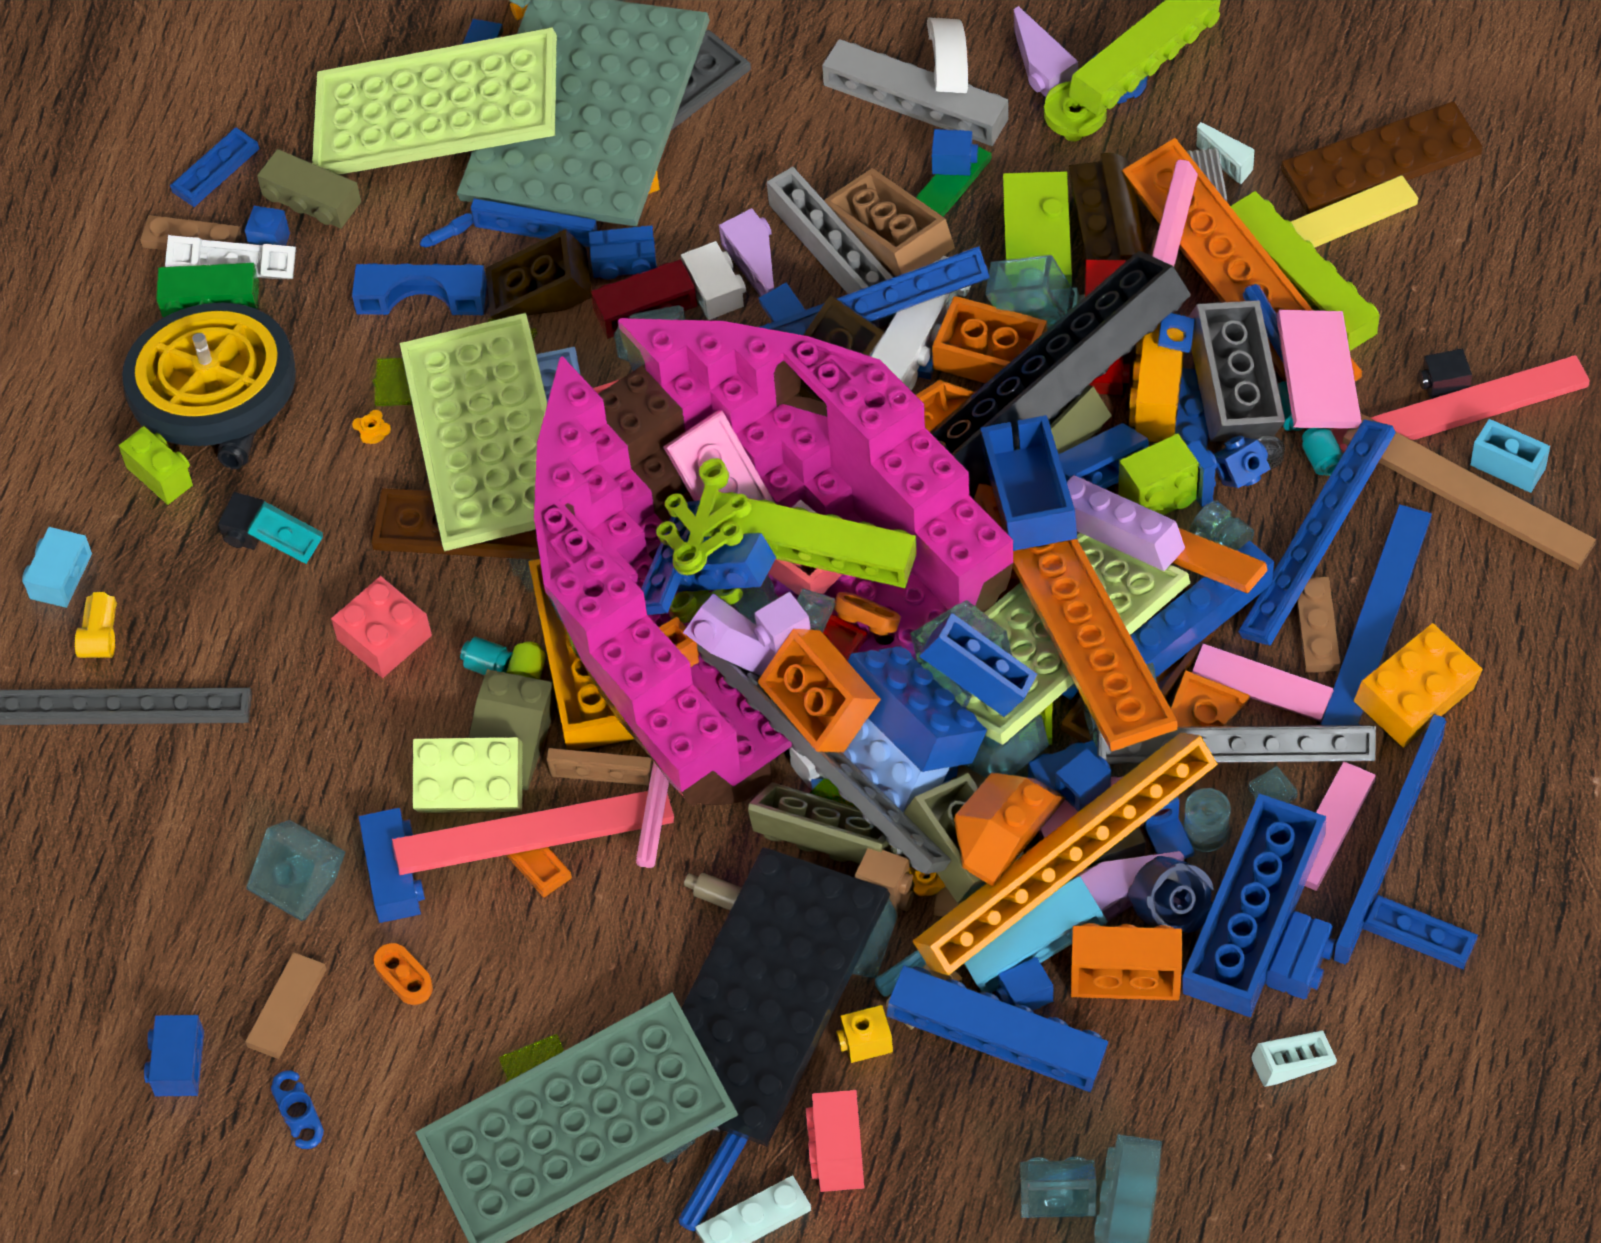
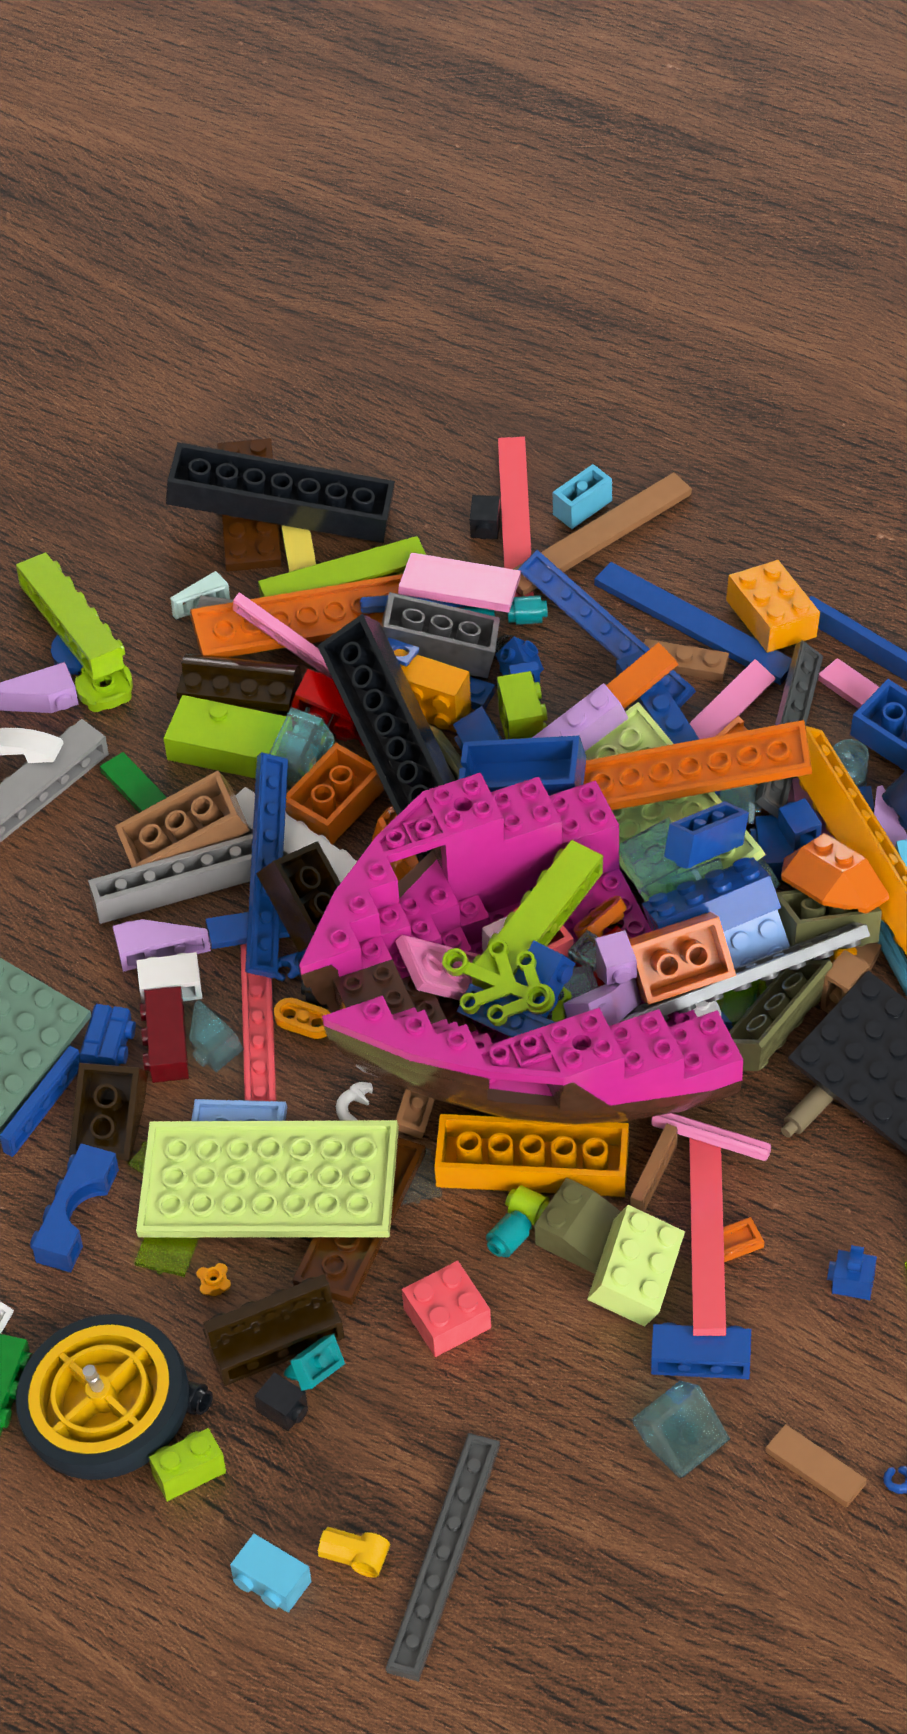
camera: 75 degrees left, 5 degrees down
(175, 1055) = (847, 1560): blue brick -> none
(316, 488) = (272, 1329): none -> dark brown brick
(405, 975) = (812, 1363): orange plate -> none
(454, 228) = (10, 1172): blue piece -> none
(520, 984) = (853, 1273): none -> blue brick
(953, 152) = (118, 771): blue brick -> none
(1217, 525) = (572, 690): clear light blue wheel -> none
(1274, 785) = (829, 723): clear light blue plate -> none
(1382, 170) = (280, 492): none -> black brick

